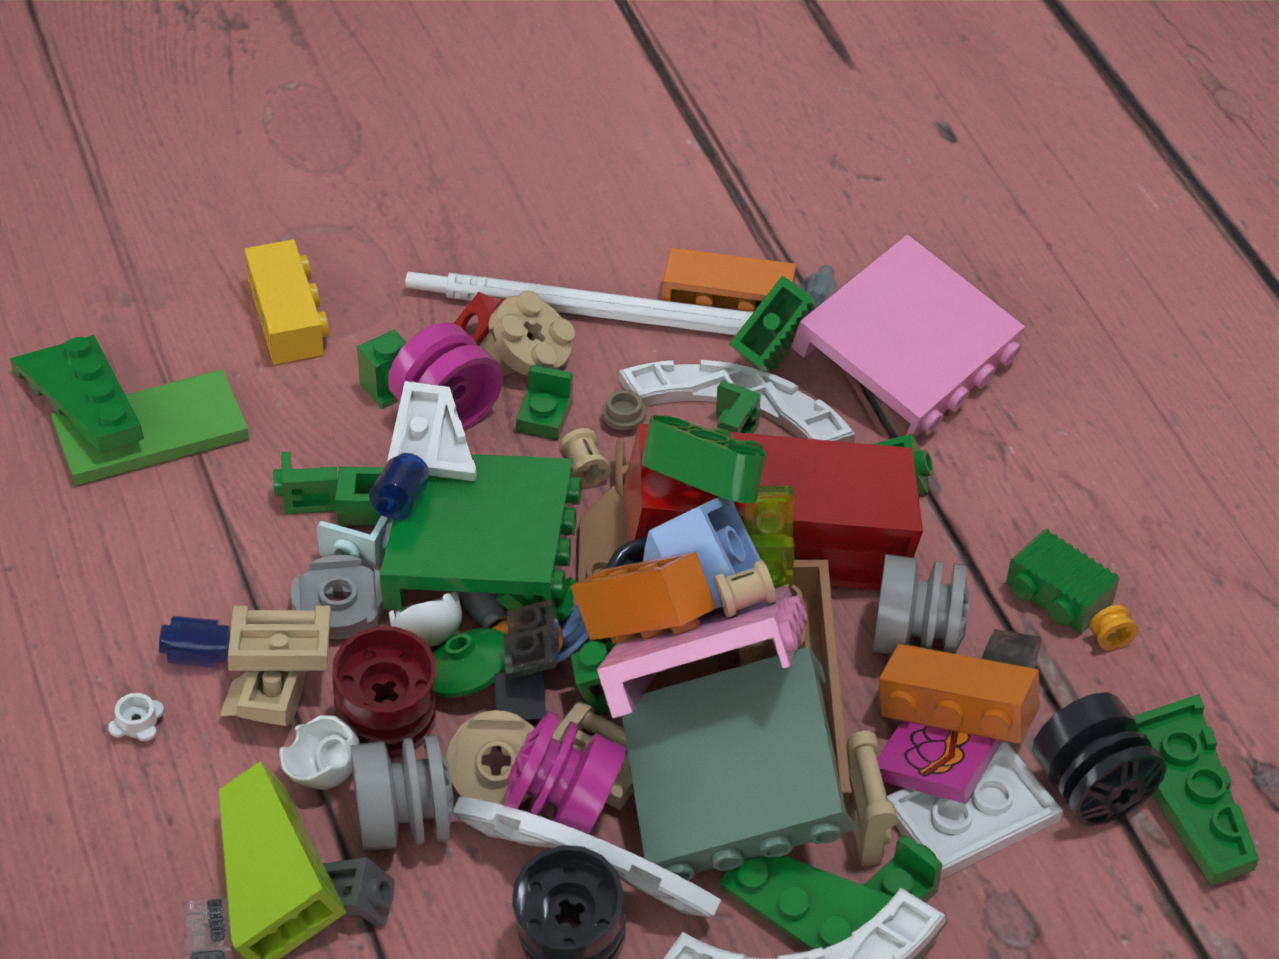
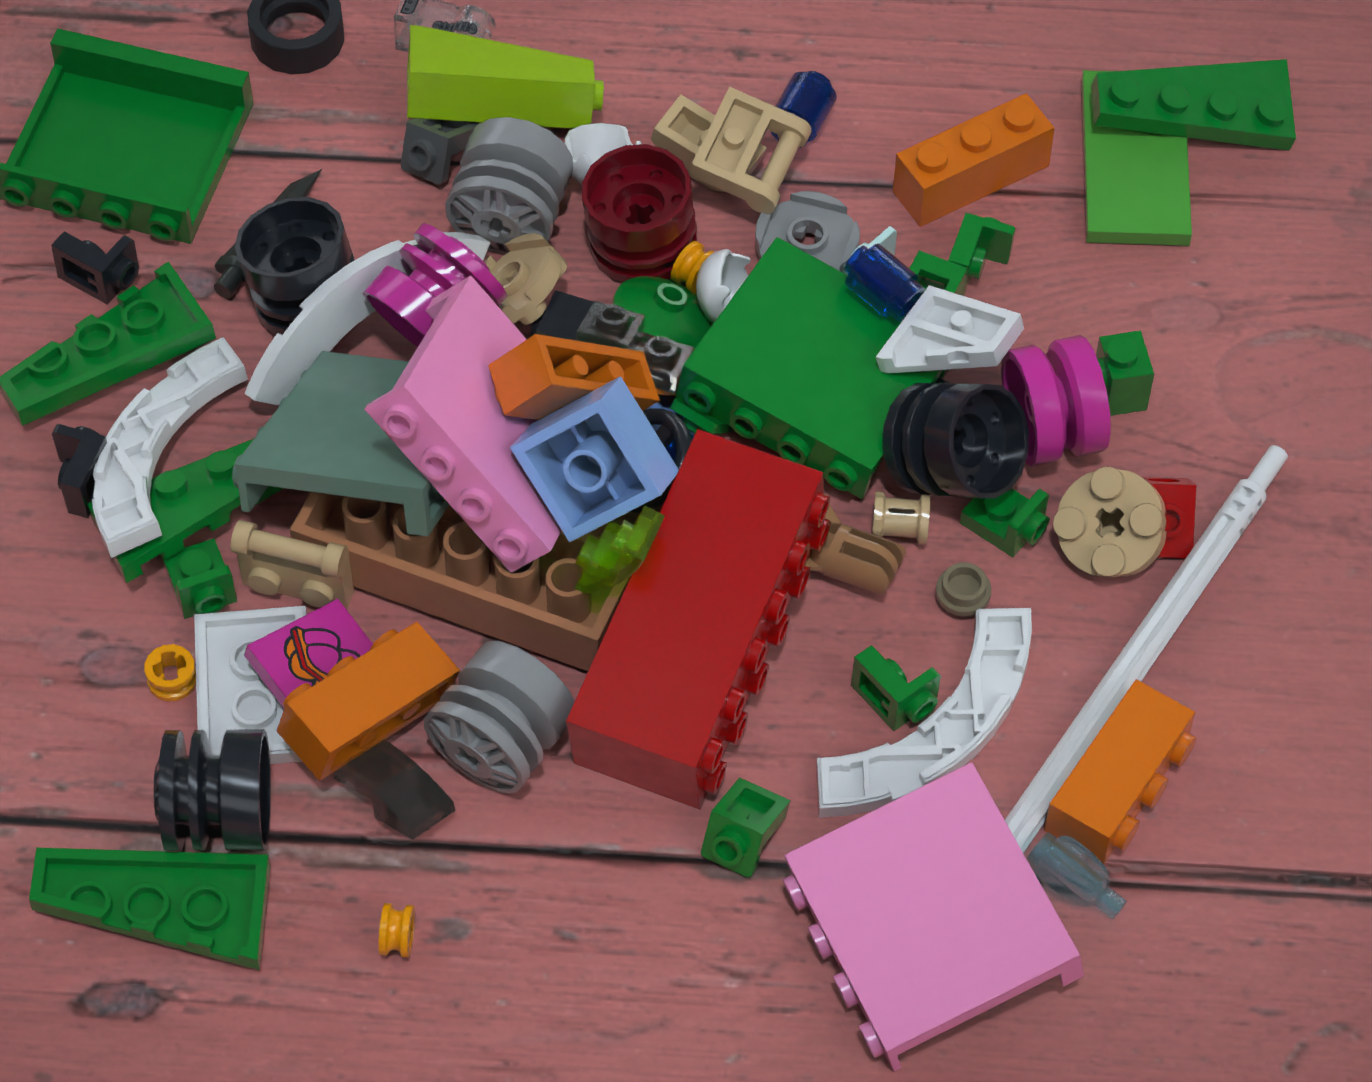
camera: 115 degrees right, 10 degrees up
(134, 707) = (736, 46): white plate -> none
(209, 509) = (973, 159): none -> orange brick
(286, 301) = (1278, 316): yellow brick -> none
(521, 413) = (956, 440): none -> black wheel
(705, 458) = (709, 500): green piece -> none
(745, 589) = (507, 432): tan bush -> none
(773, 325) = (1002, 759): green brick -> none
(998, 881) = (154, 671): none -> light orange bush
(1061, 580) = (486, 906): green brick -> none

